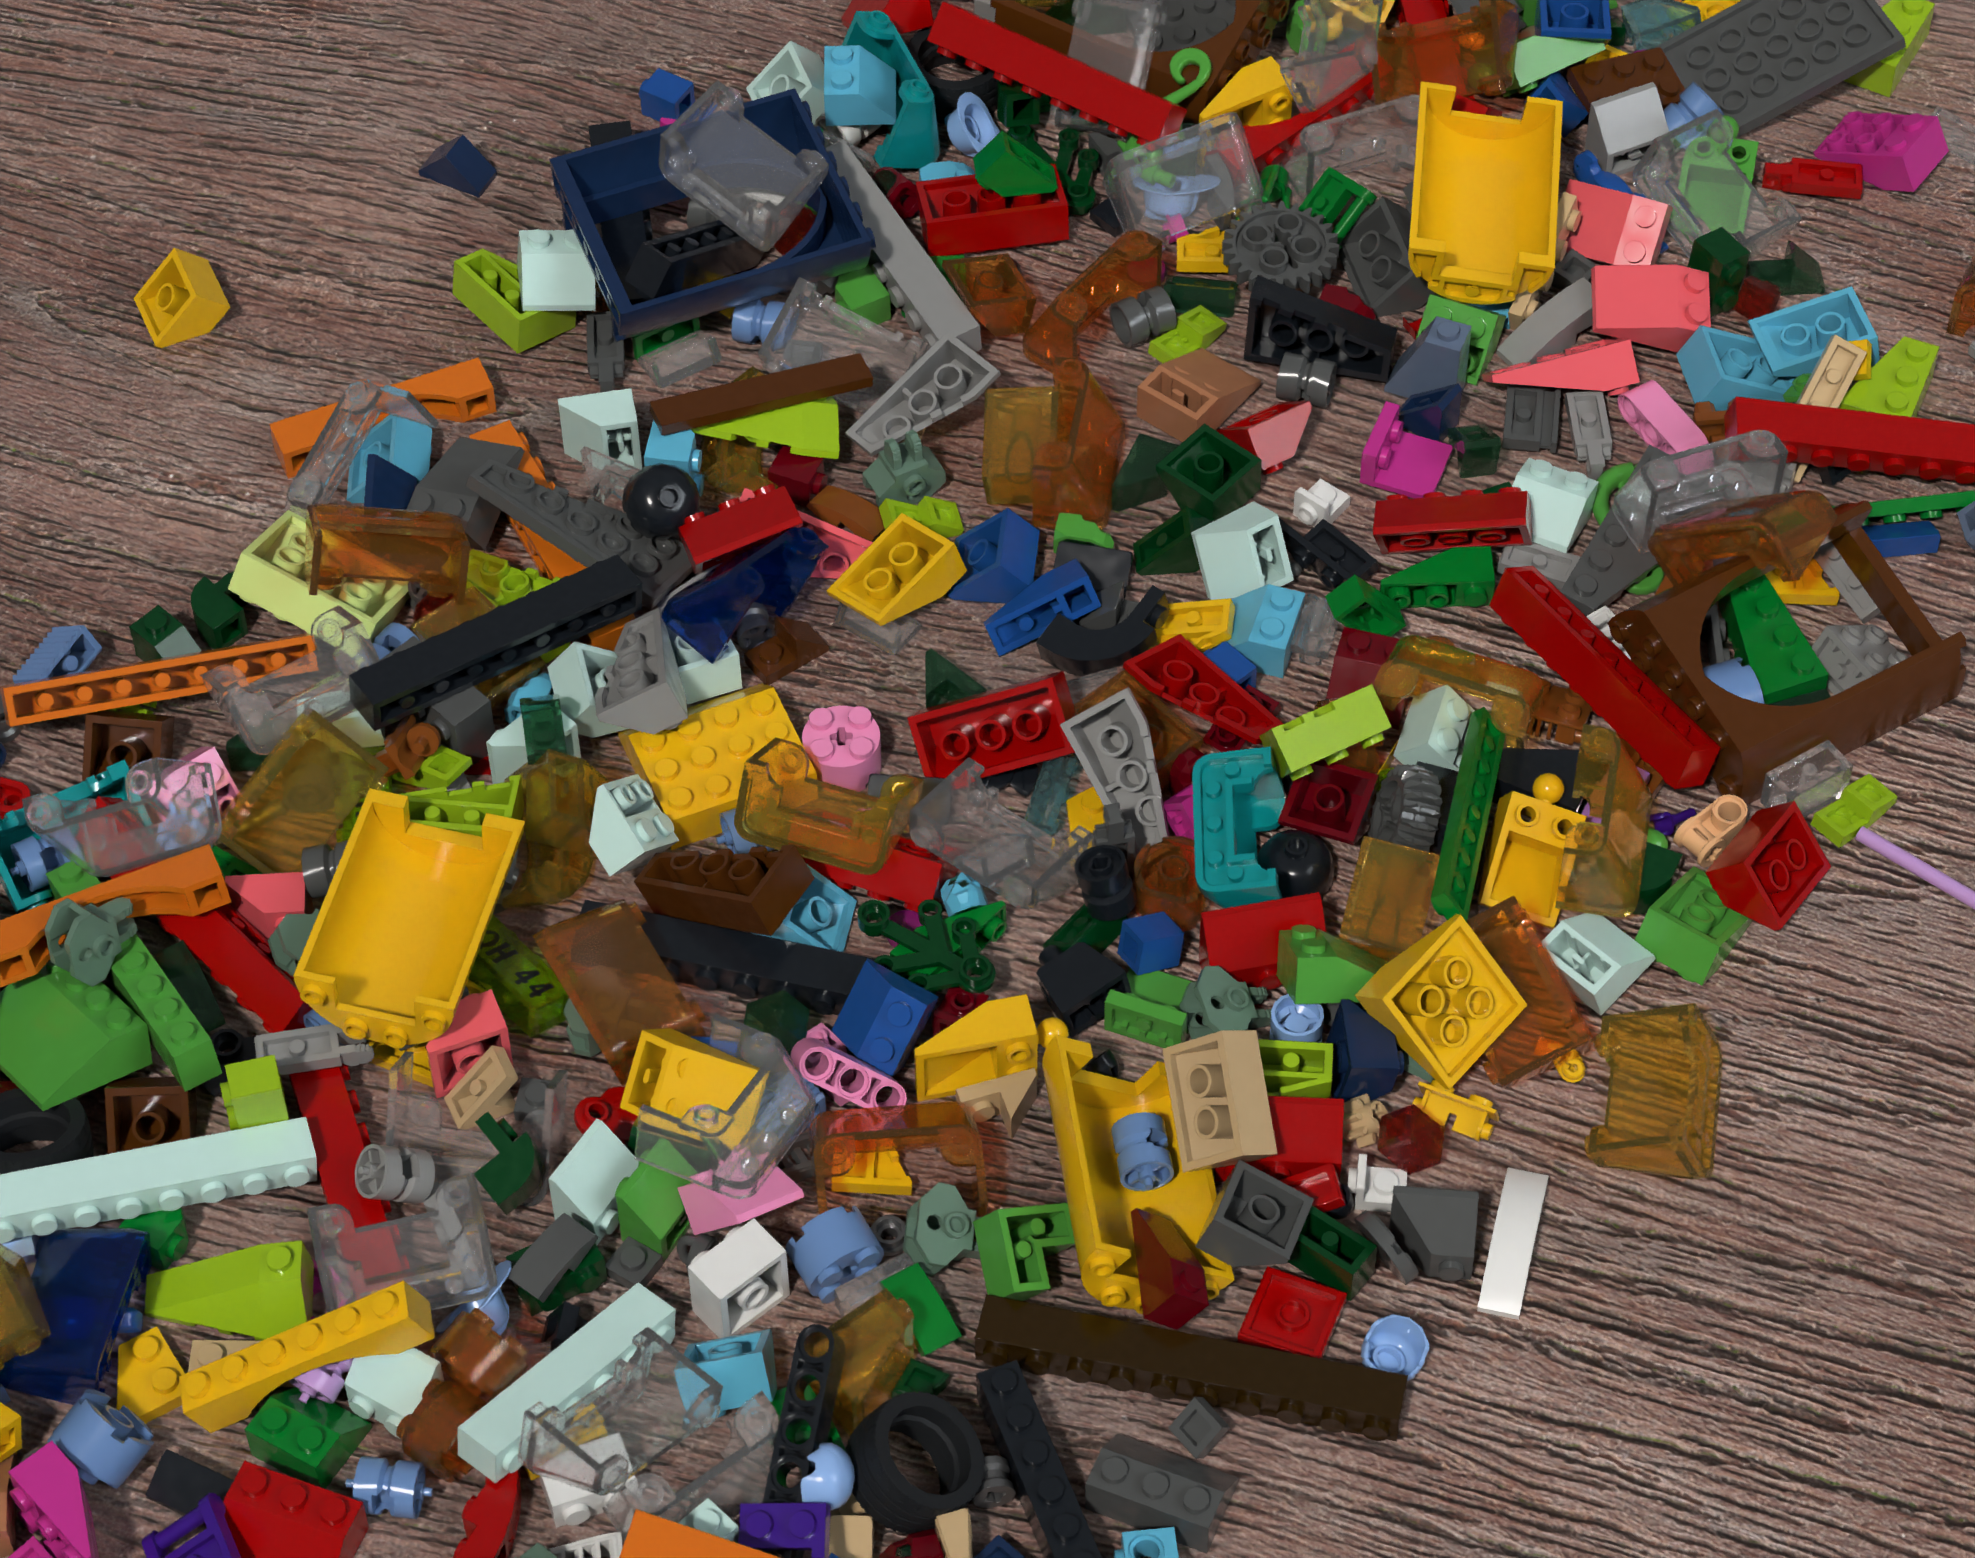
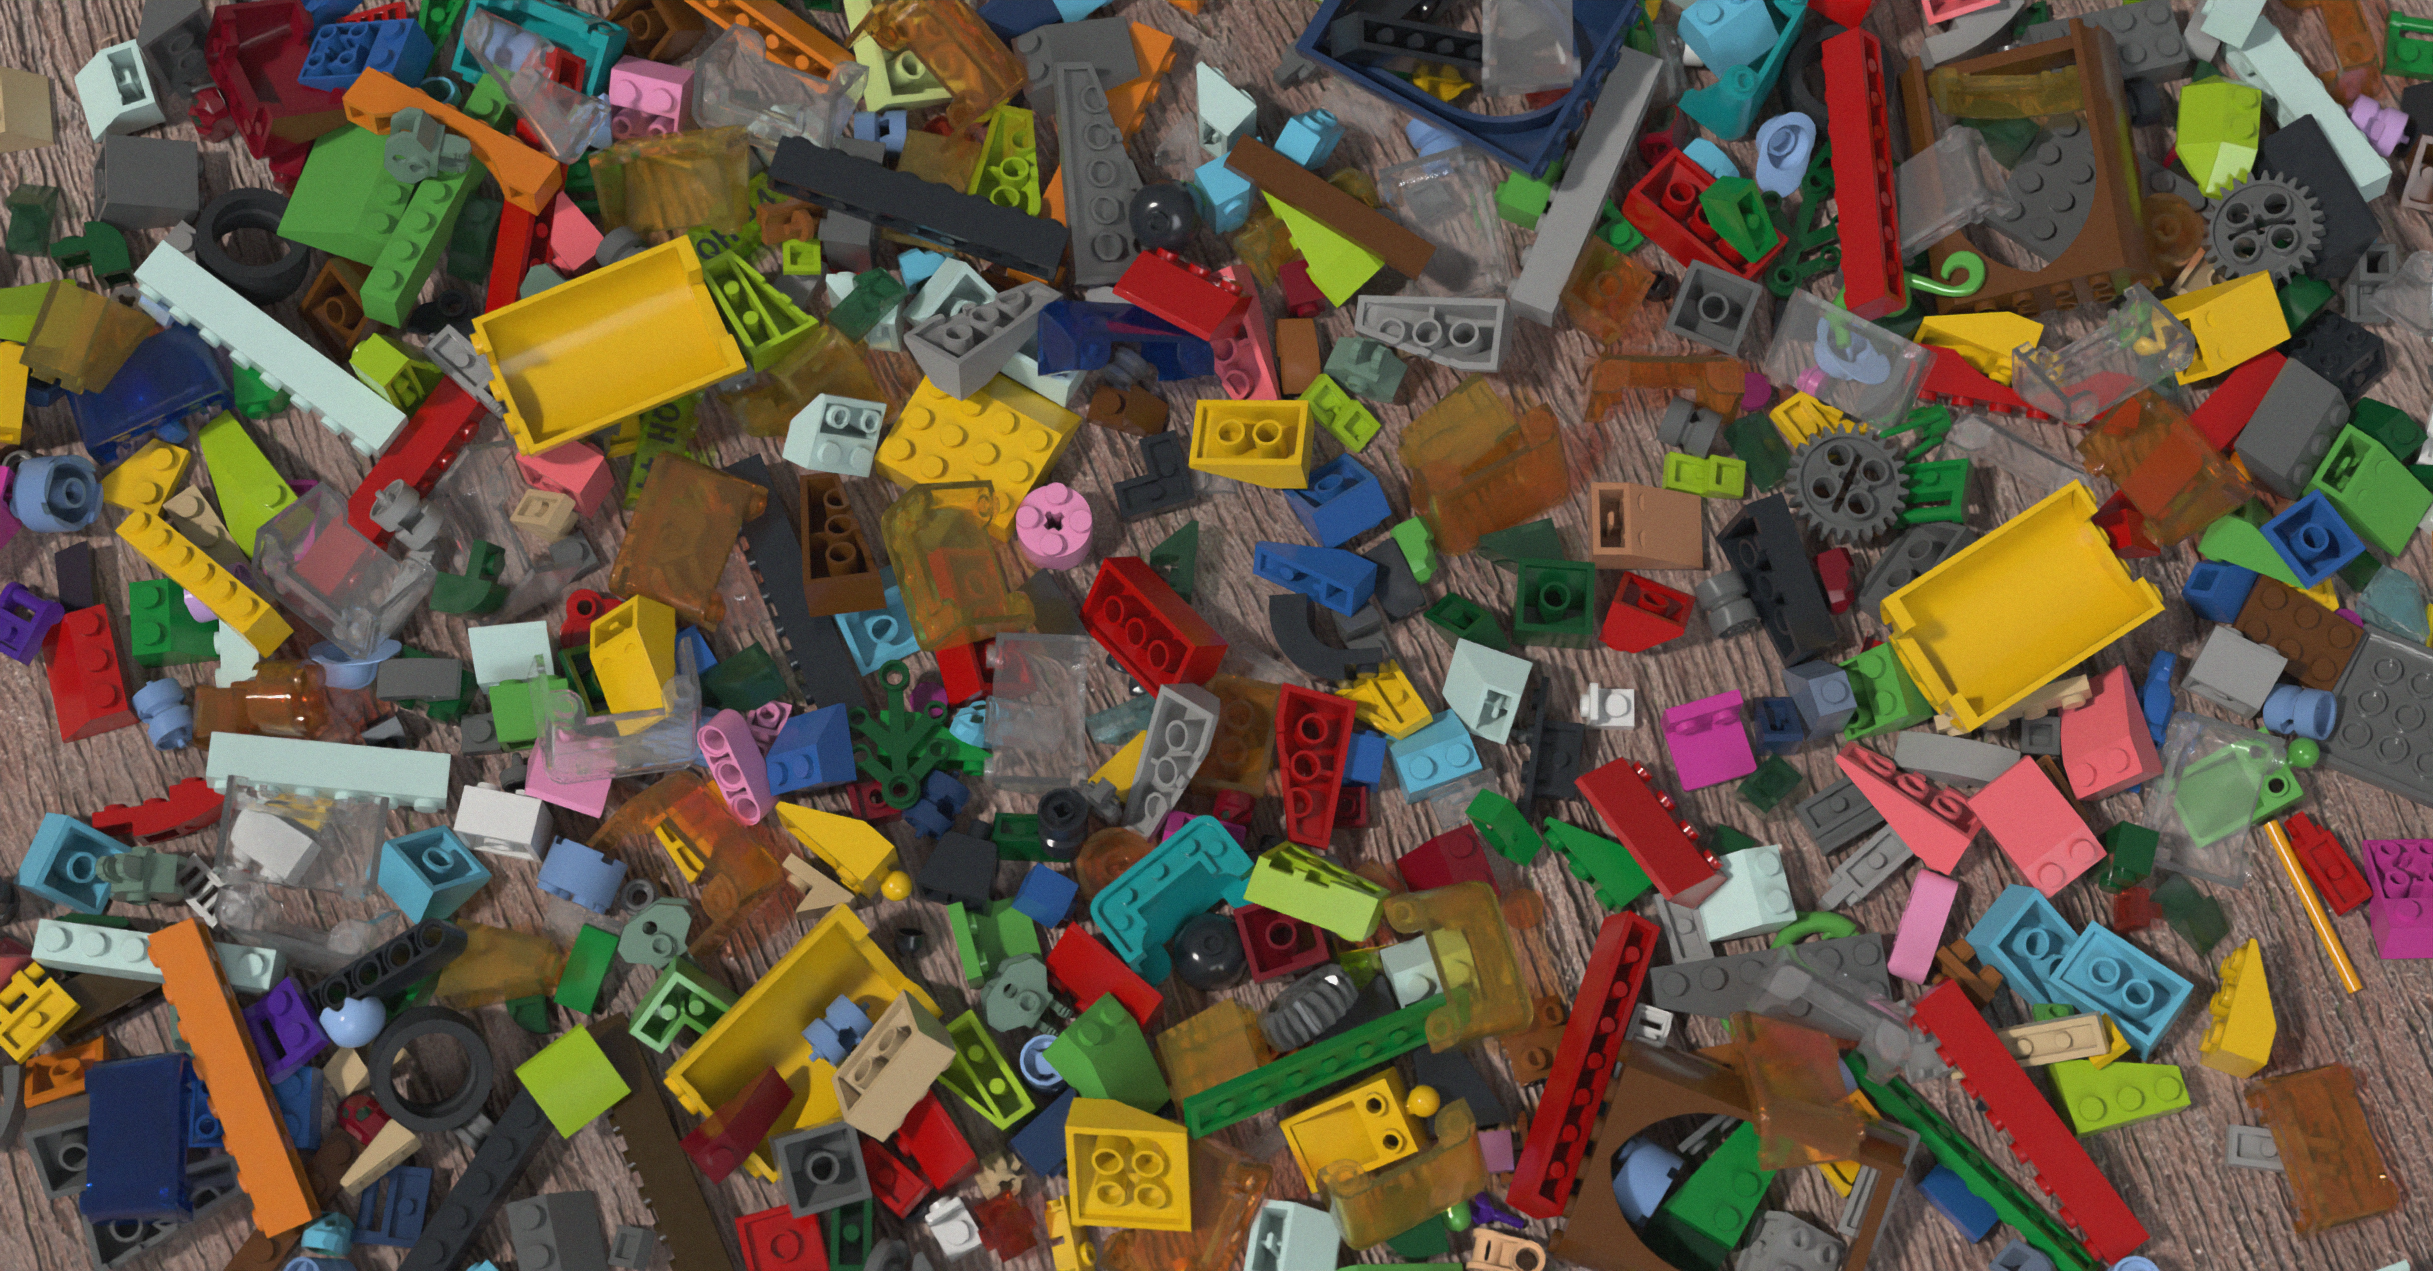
camera: 50 degrees right, 20 degrees up
(682, 377) = (1310, 138): none -> medium azure brick
(871, 663) = (1164, 485): none -> black plate
(1013, 973) = (938, 802): none -> dark blue wheel
(1023, 1354) = (572, 1081): none -> lime slope
(1063, 239) = (1712, 307): none -> dark grey slope
(1844, 208) = (2313, 907): none -> light orange axle
(1893, 281) = (2242, 1016): none -> yellow slope

